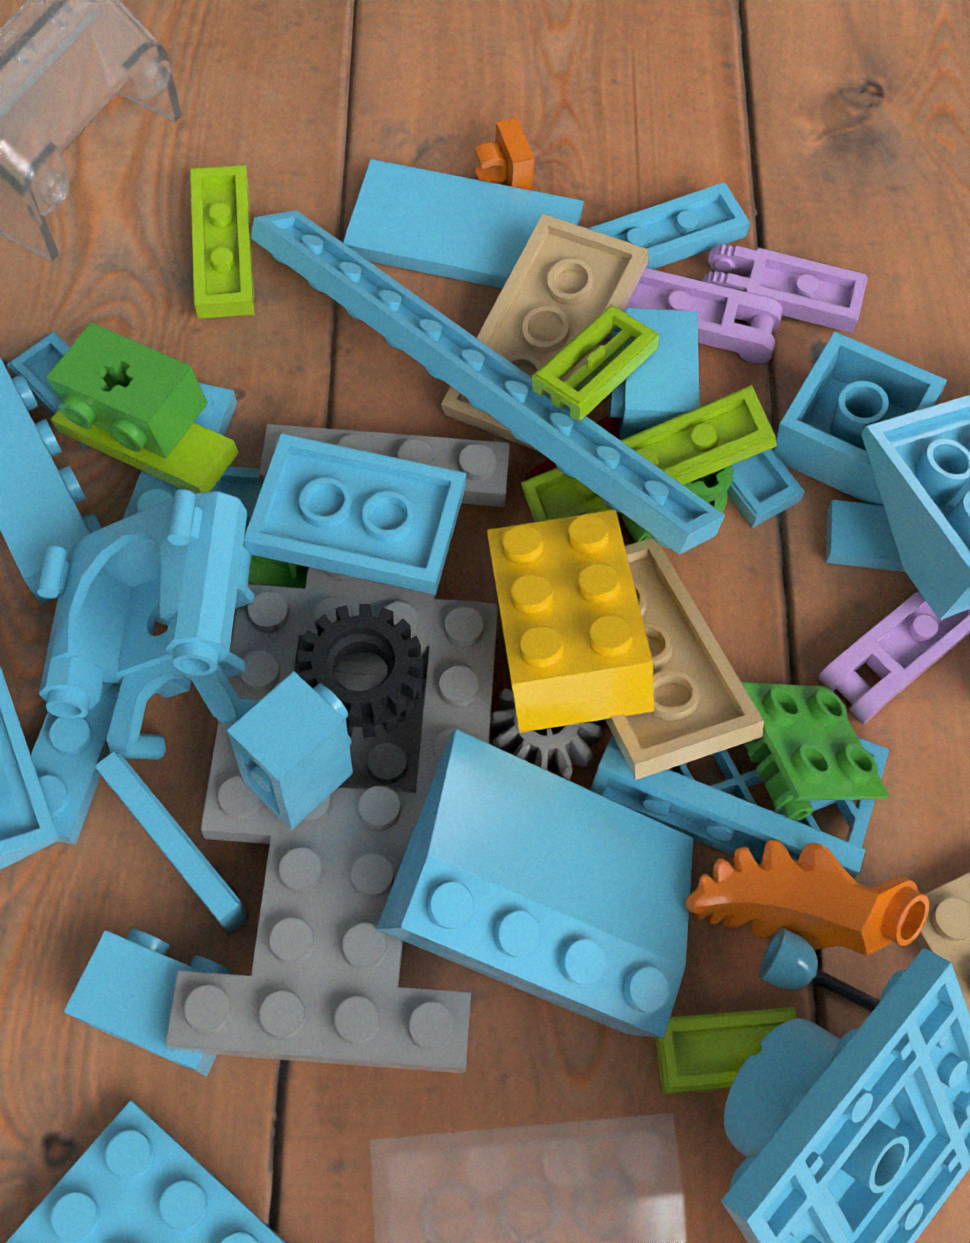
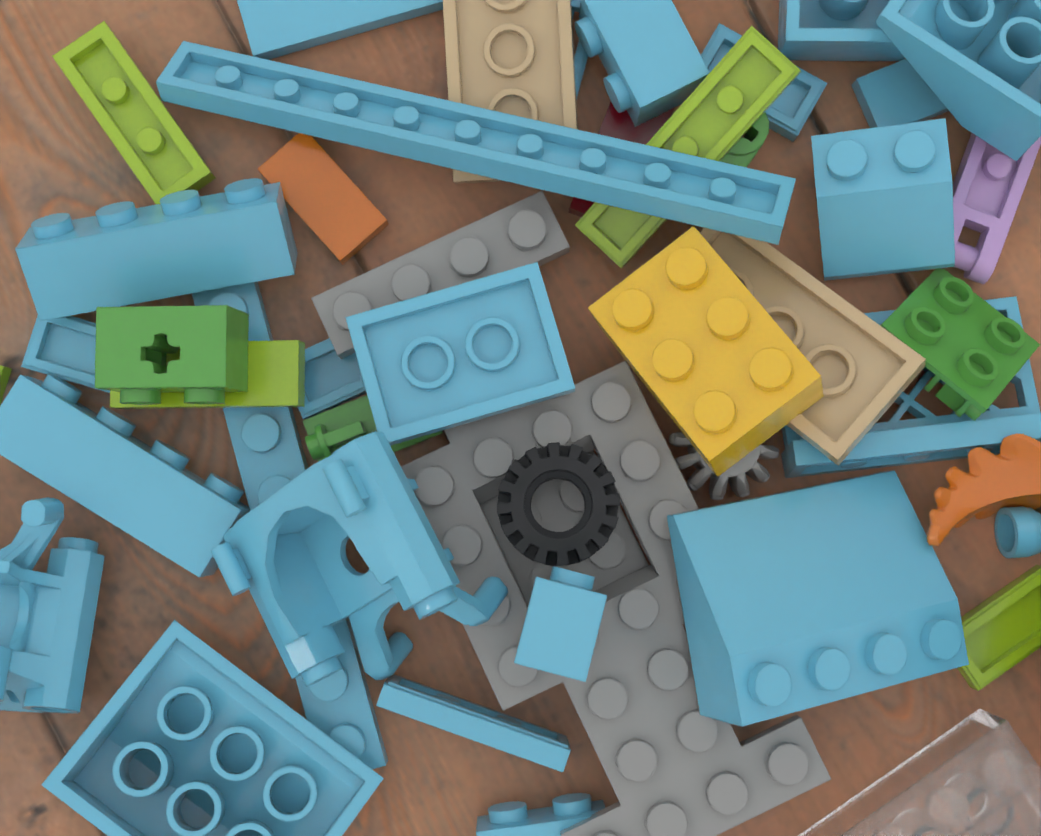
camera: 30 degrees left, 20 degrees up
(219, 345) = (157, 249): none -> medium azure brick
(330, 369) = (324, 196): none -> orange tile
(604, 367) = (580, 128): lime tile -> none
(802, 594) = (884, 199): none -> medium azure slope

